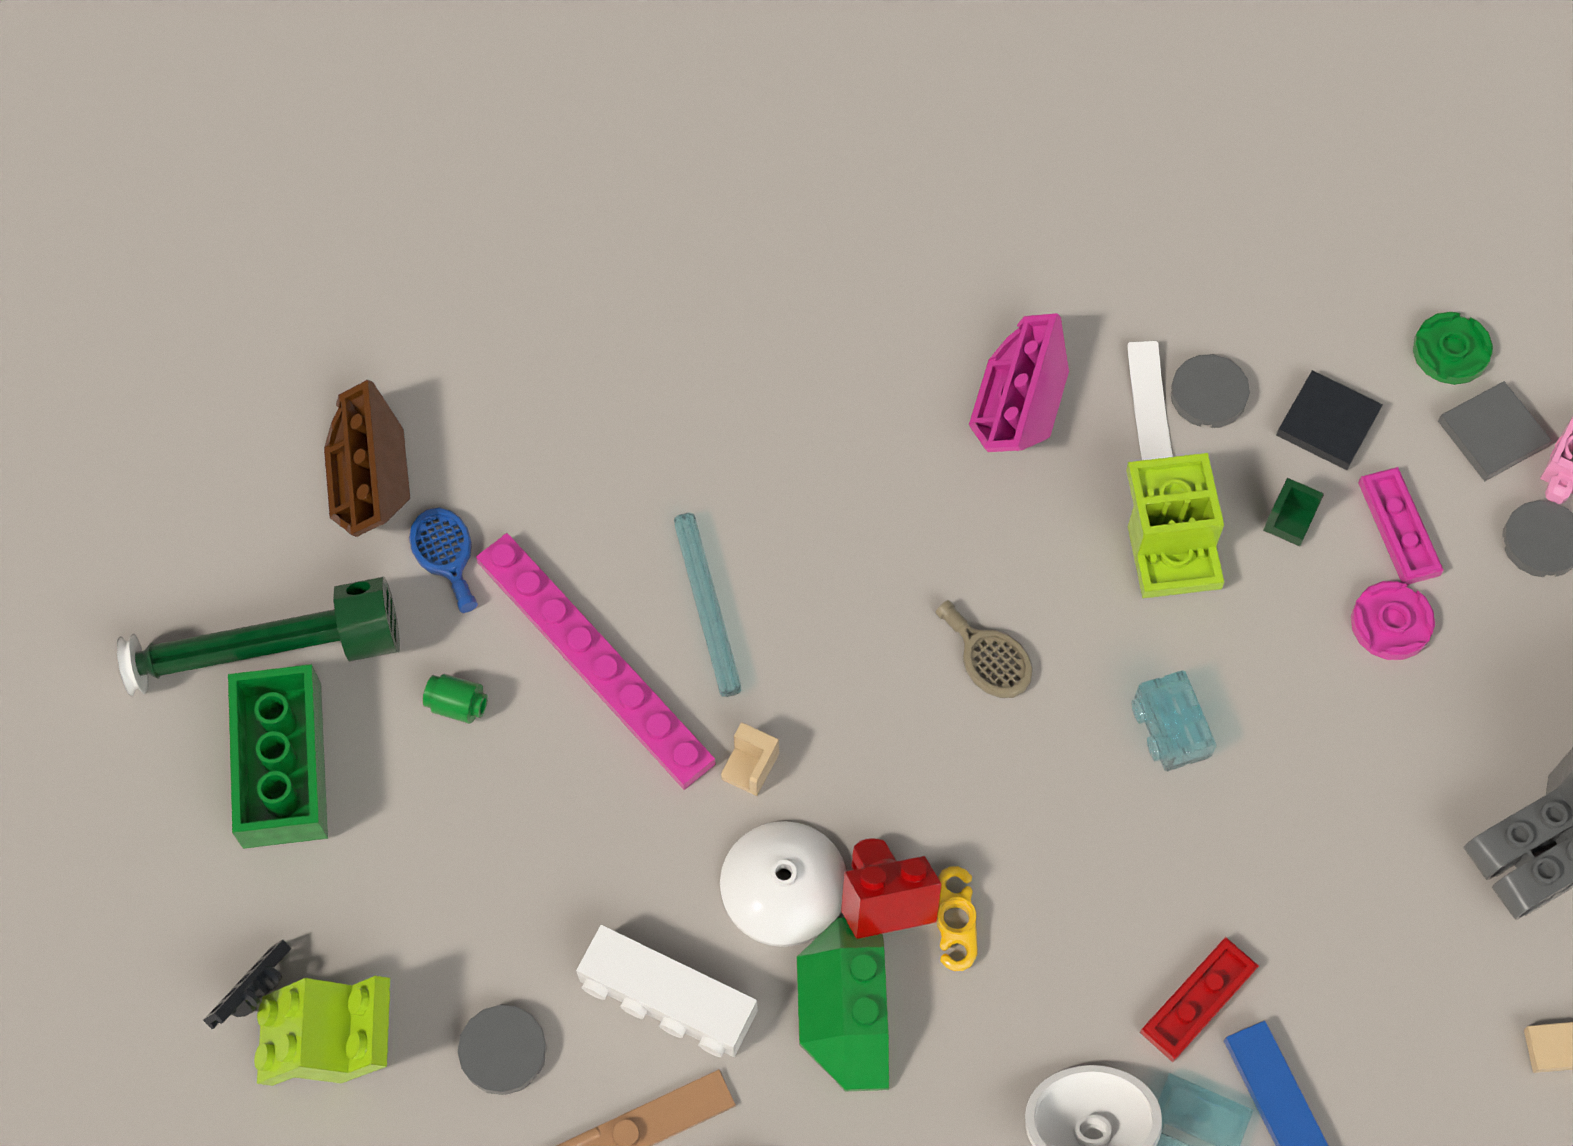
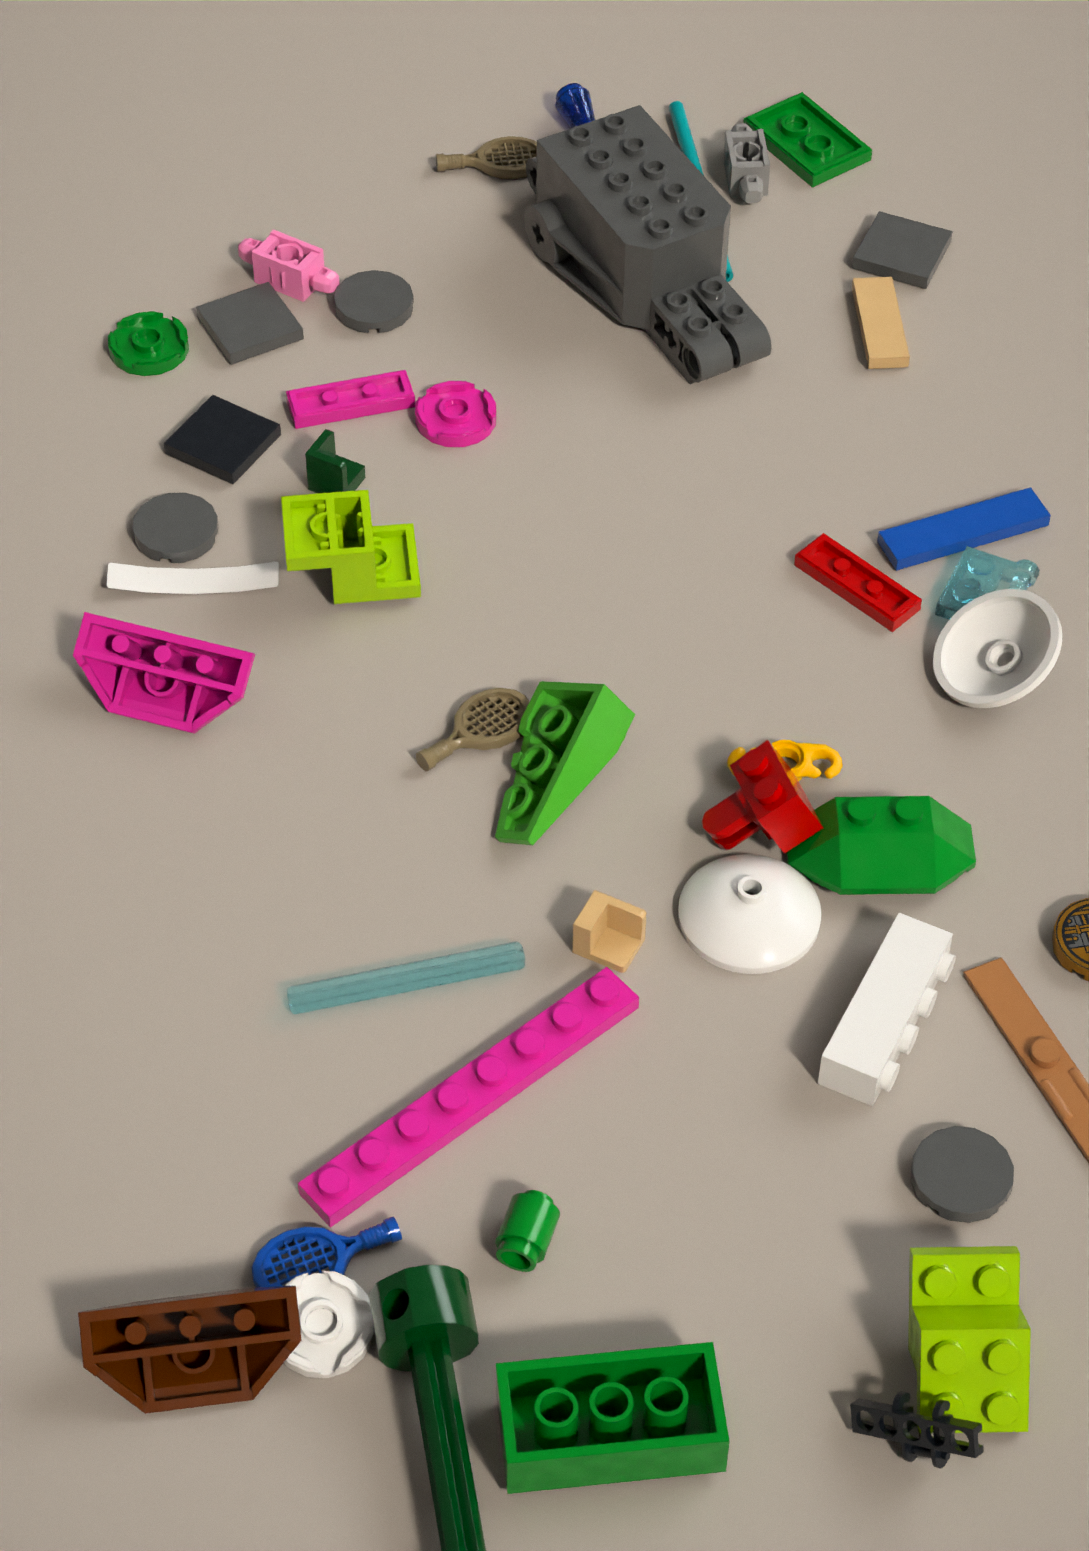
camera: 90 degrees left, 15 degrees down
(386, 552) = (333, 1325): none -> white tile
(955, 723) = (565, 744): none -> bright green wedge
(1173, 720) = (567, 573): clear light blue brick -> none

